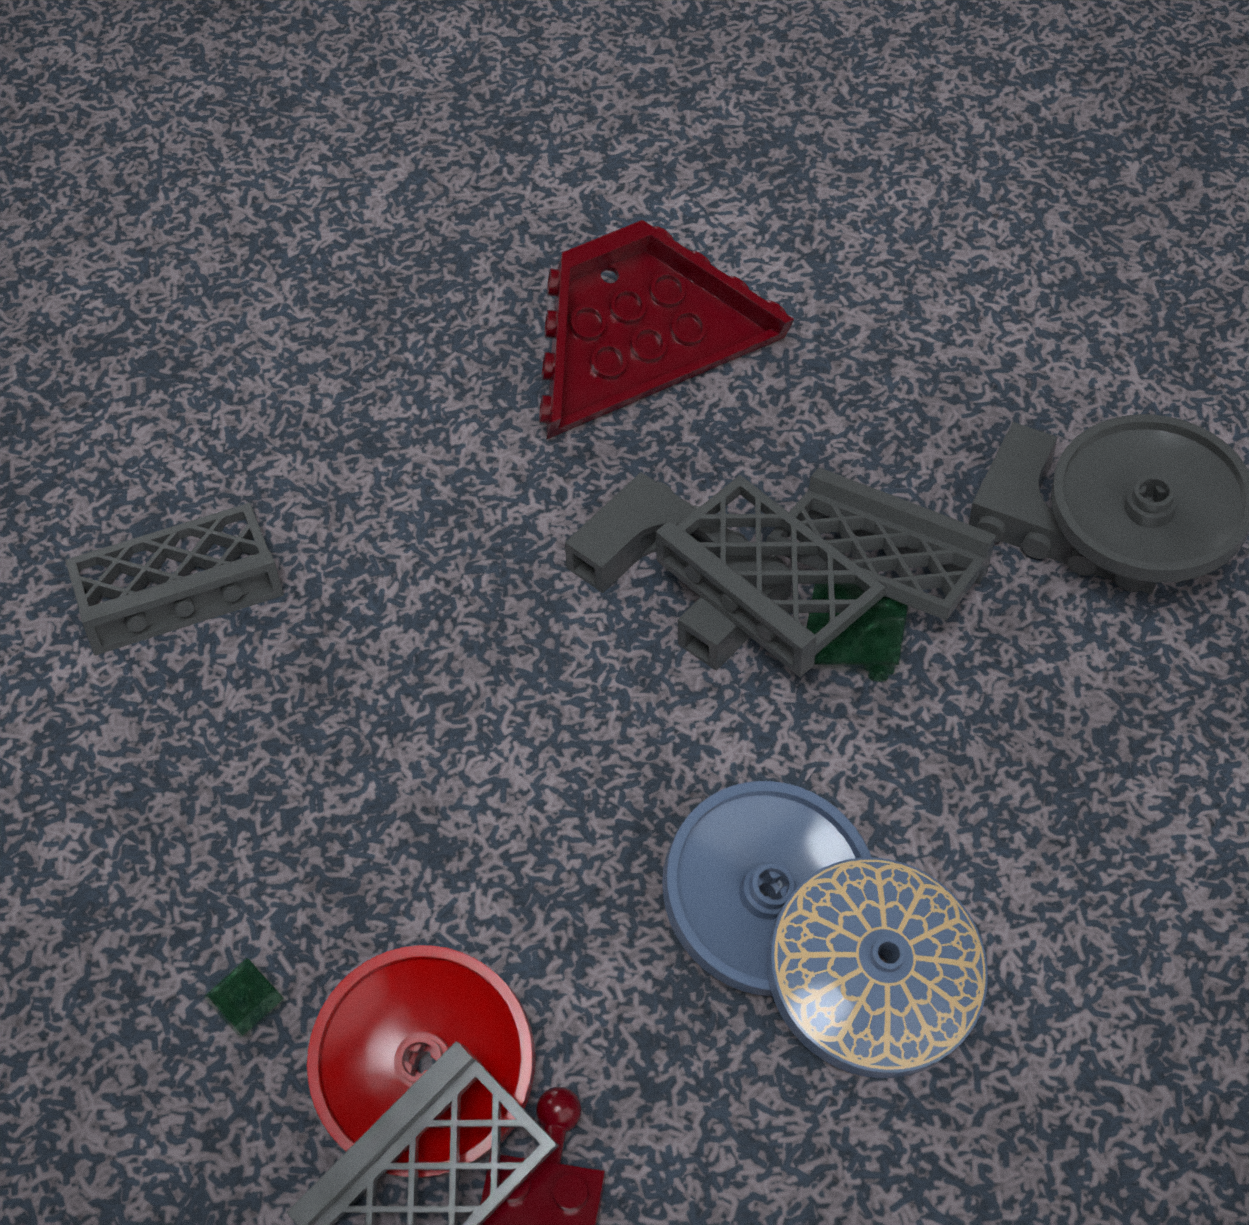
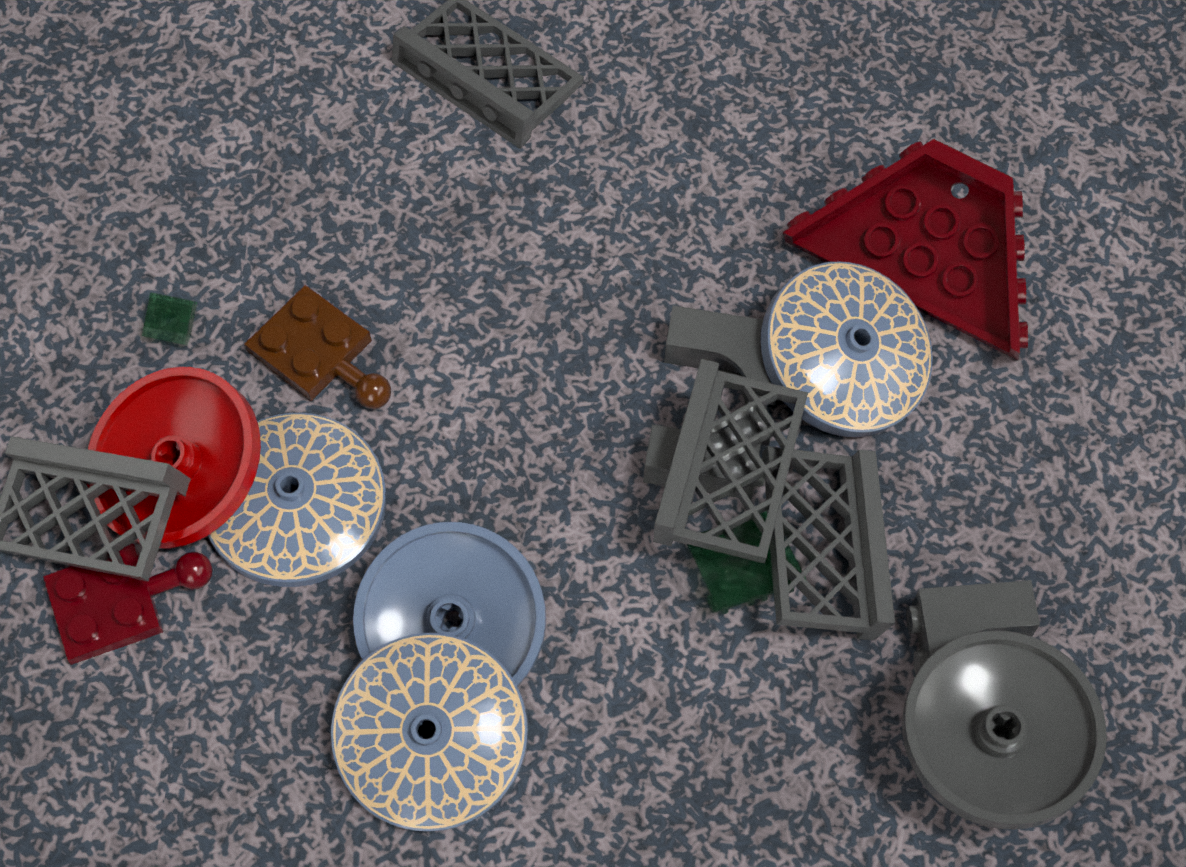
camera: 55 degrees right, 10 degrees up
(374, 877) = (312, 345): none -> reddish brown plate
(583, 961) = (321, 525): none -> sand blue dish
(696, 435) = (850, 345): none -> sand blue dish

